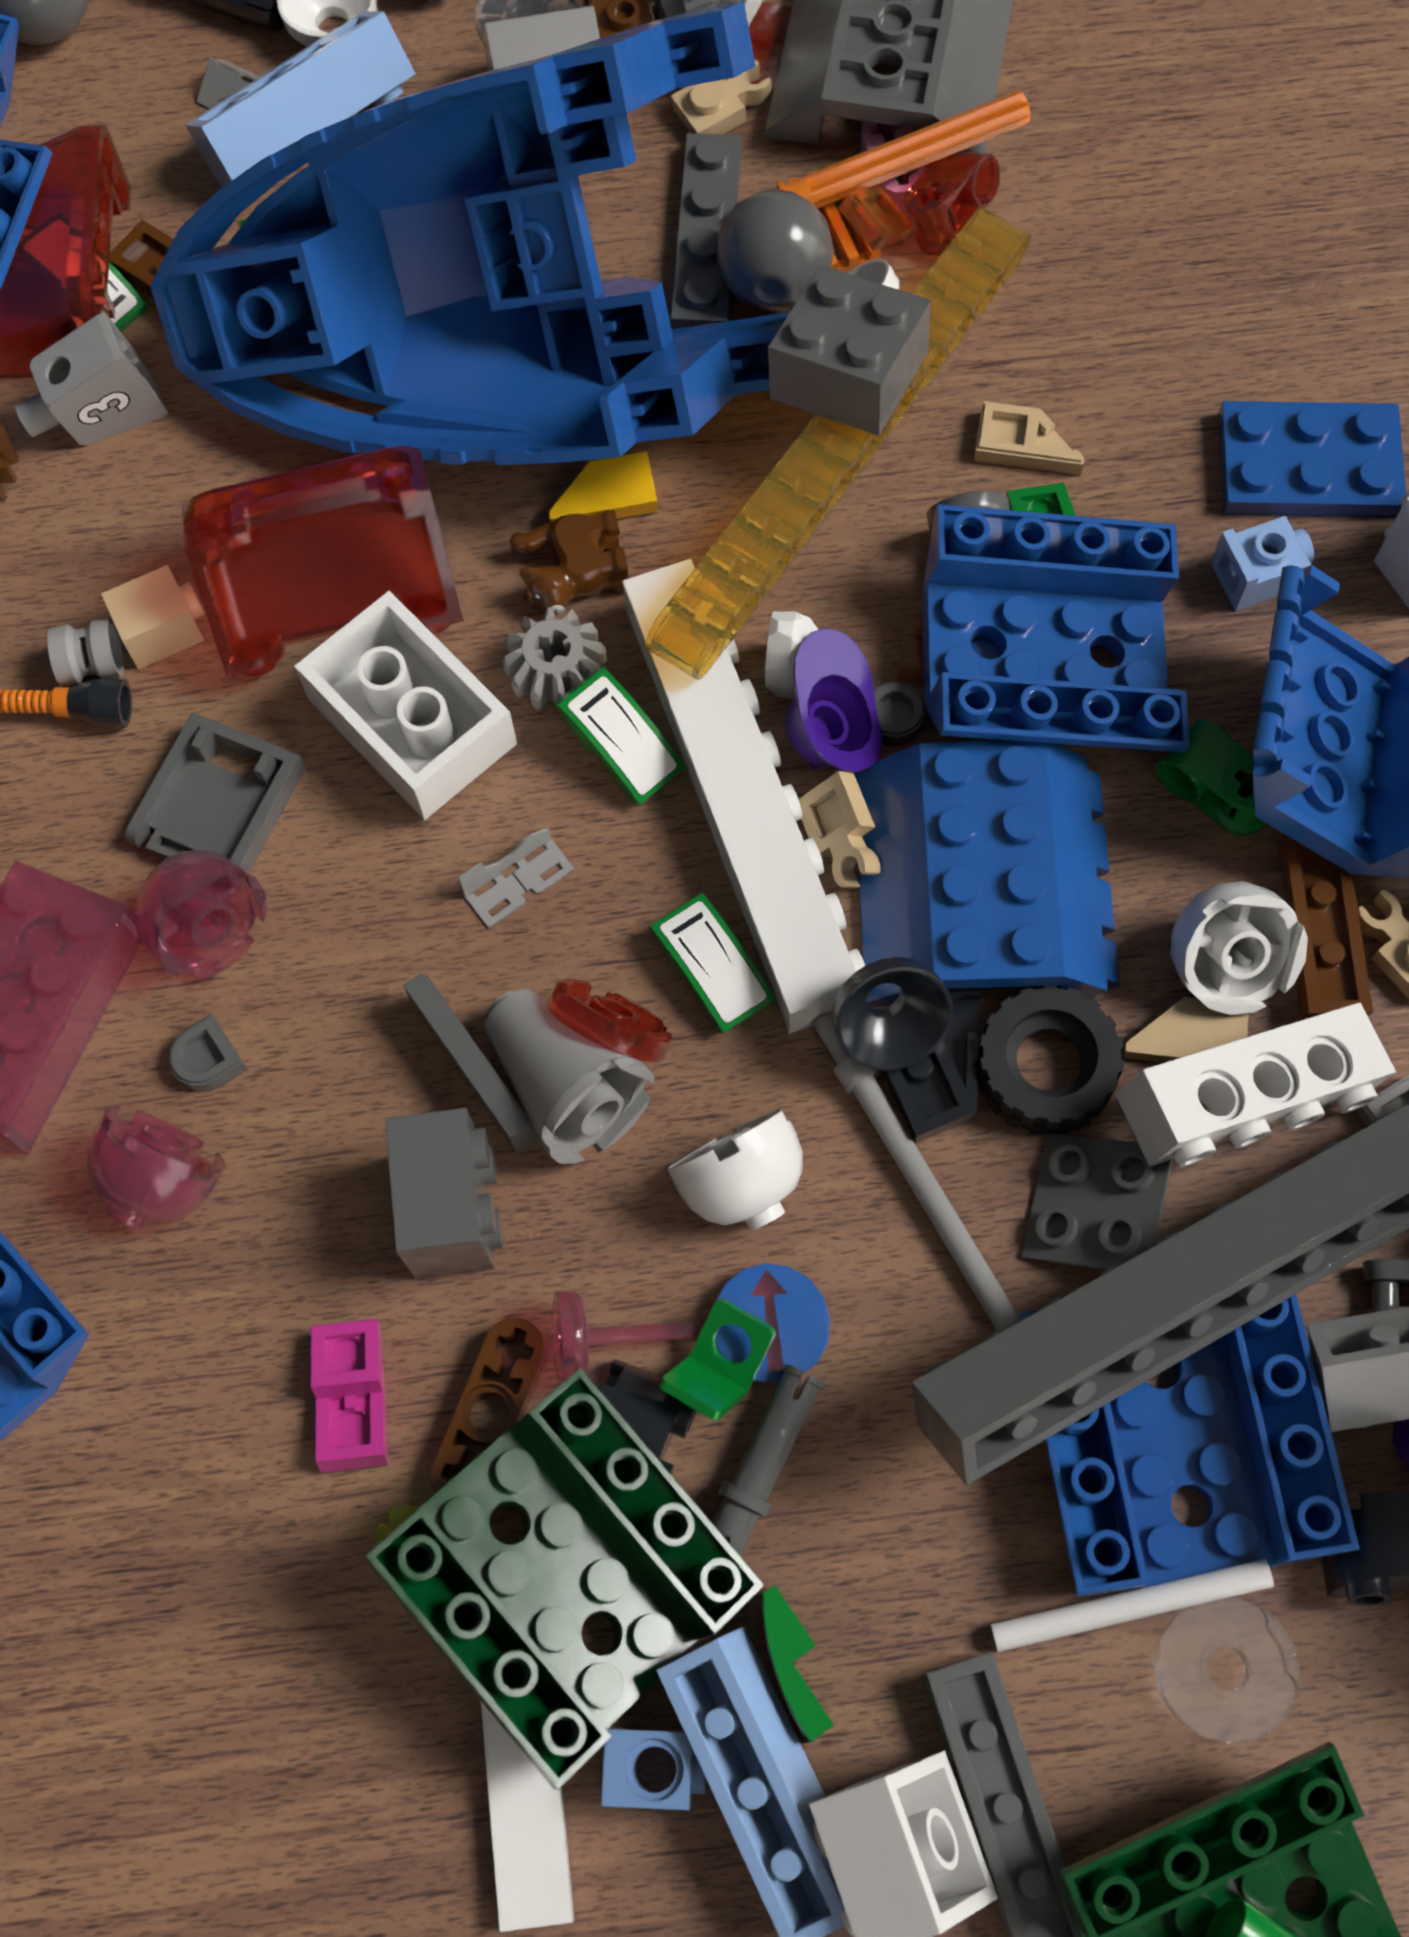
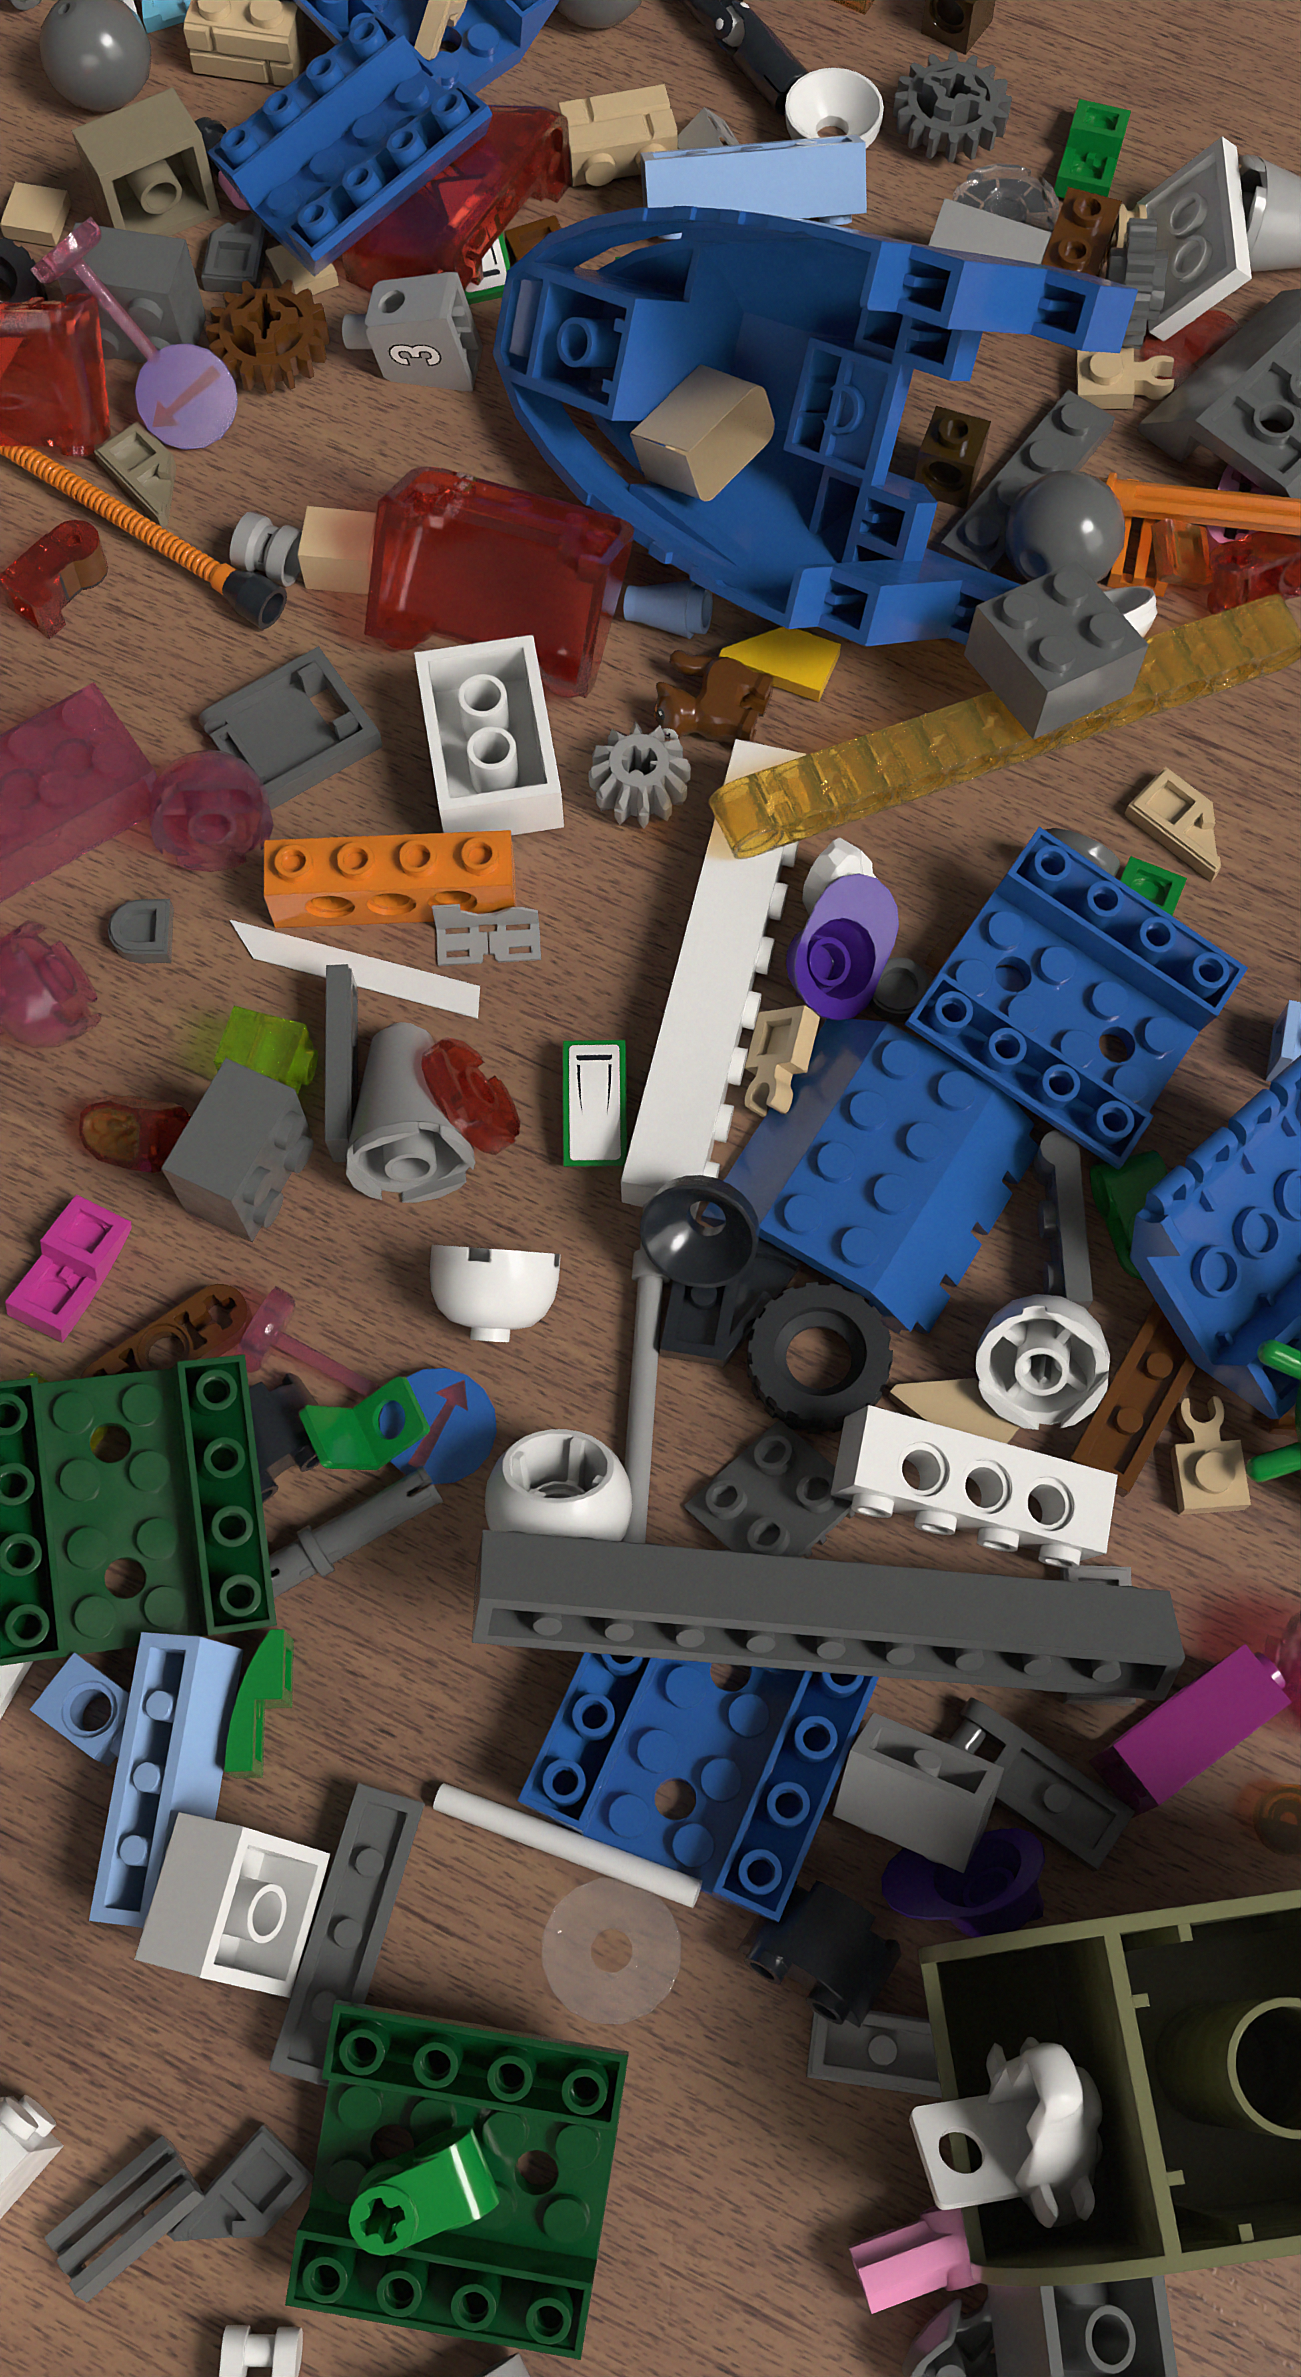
camera: 30 degrees right, 0 degrees up
(150, 118) = (614, 129): none -> tan brick
(329, 1237) = (132, 1131): none -> clear red rock
(395, 1089) = (269, 1046): none -> clear neon green brick
(400, 876) = (386, 877): none -> orange brick
(418, 325) = (709, 431): none -> tan piece
(440, 967) = (367, 971): none -> white sticker
(479, 502) = (672, 607): none -> medium blue cone
(620, 735) = (647, 868): white slope -> none
(632, 238) = (952, 455): none -> dark brown brick
(925, 1311) = (559, 1487): none -> white wheel
(1166, 821) = (1063, 1219): none -> dark grey plate

